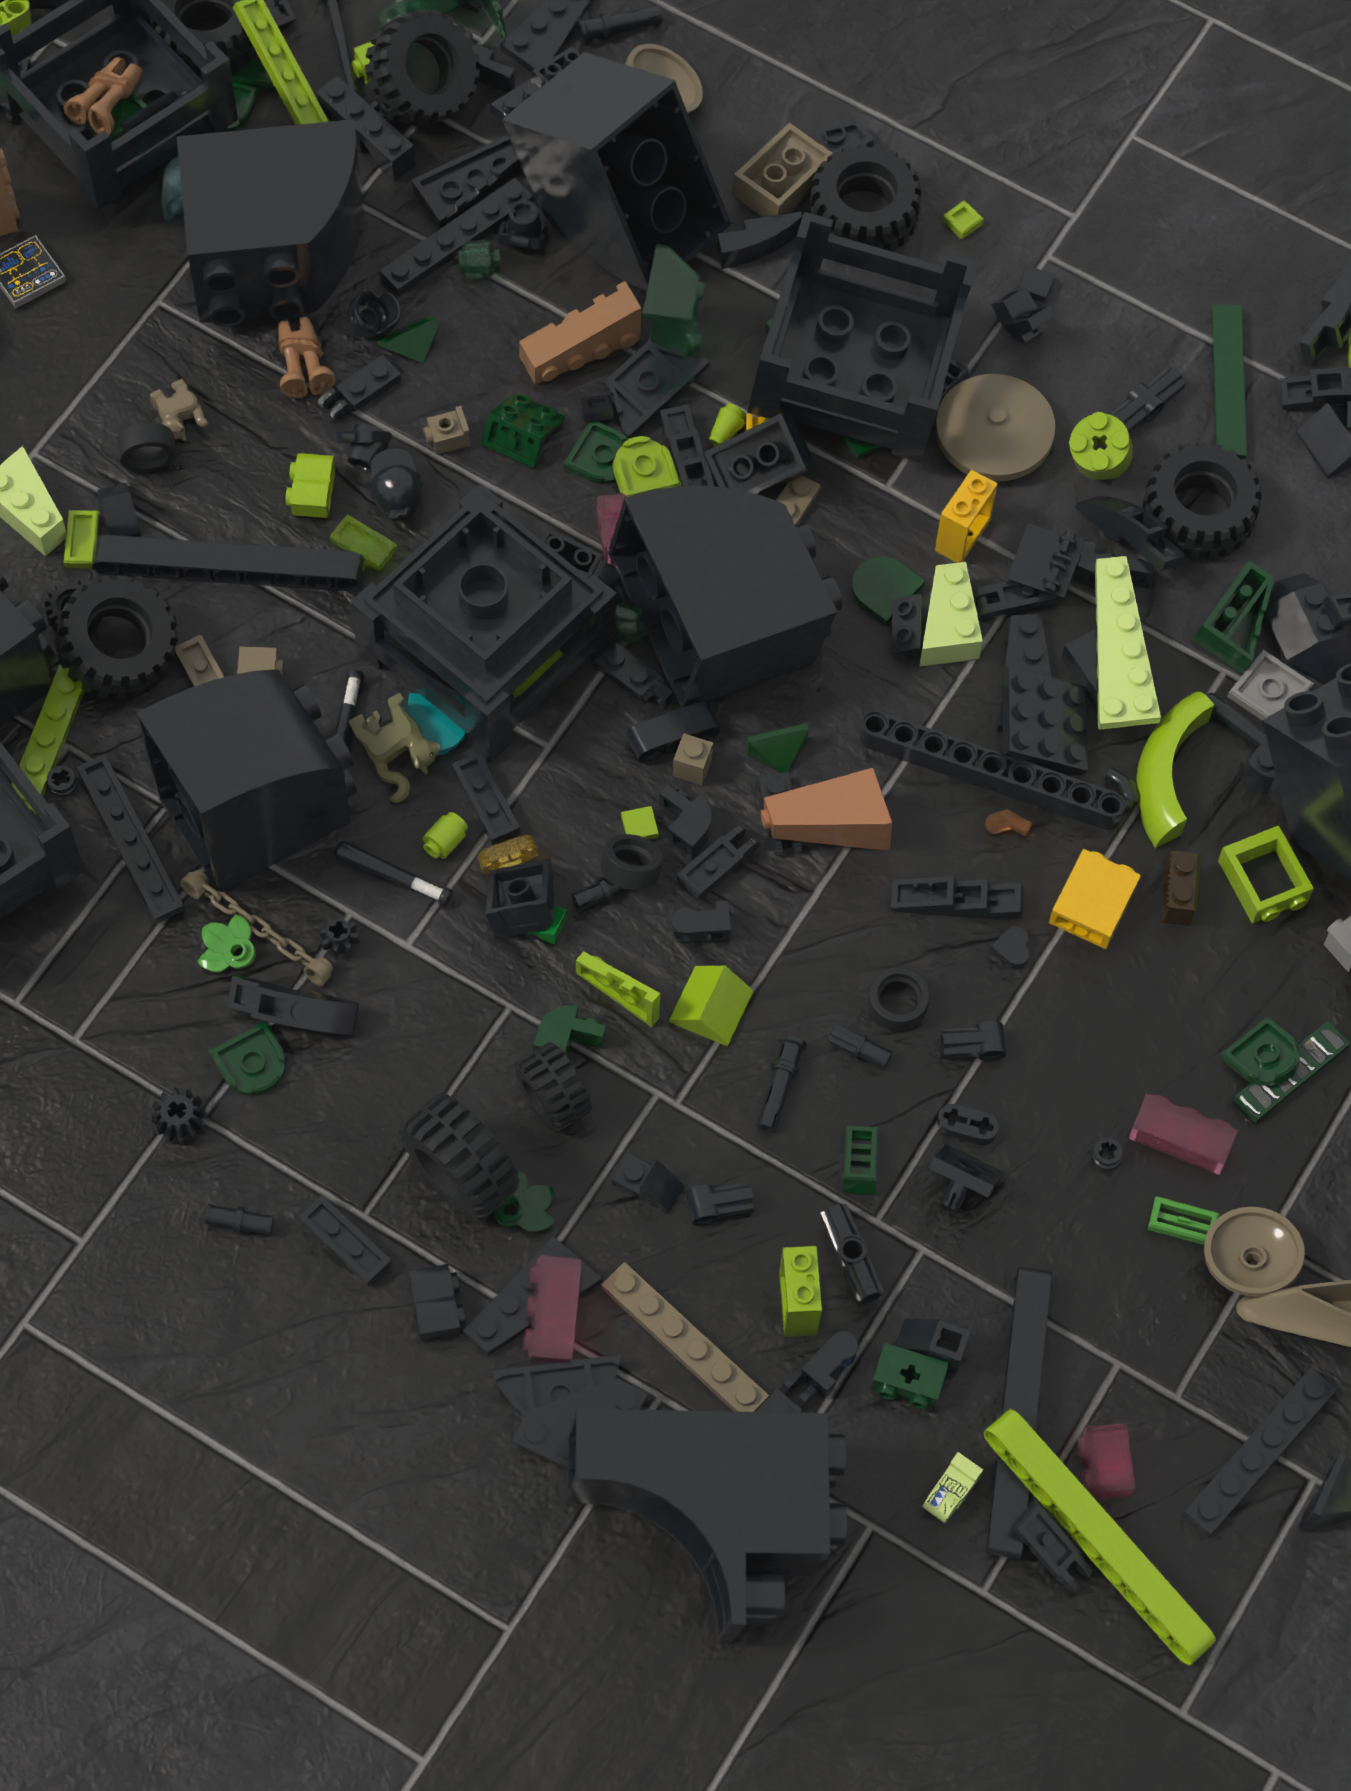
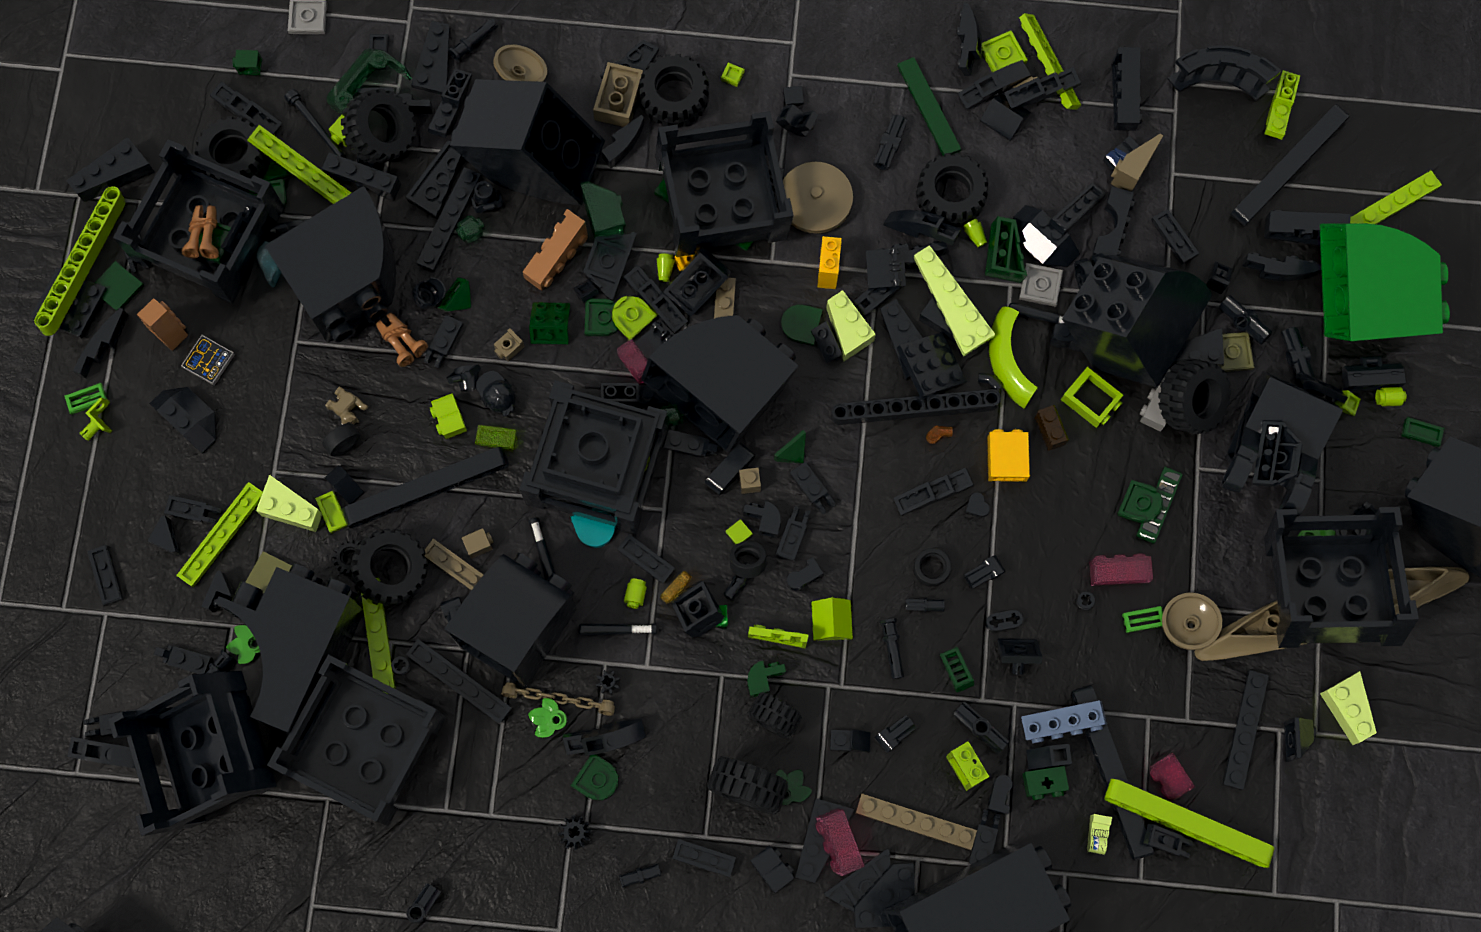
camera: 25 degrees left, 10 degrees up
(392, 740) = (574, 554): olive animal -> none
(832, 812) = (847, 475): nougat slope -> none
(981, 1298) = (1064, 720): none -> sand blue brick
(1101, 430) = (872, 188): lime brick -> none
(1208, 575) = (975, 232): none -> lime cone

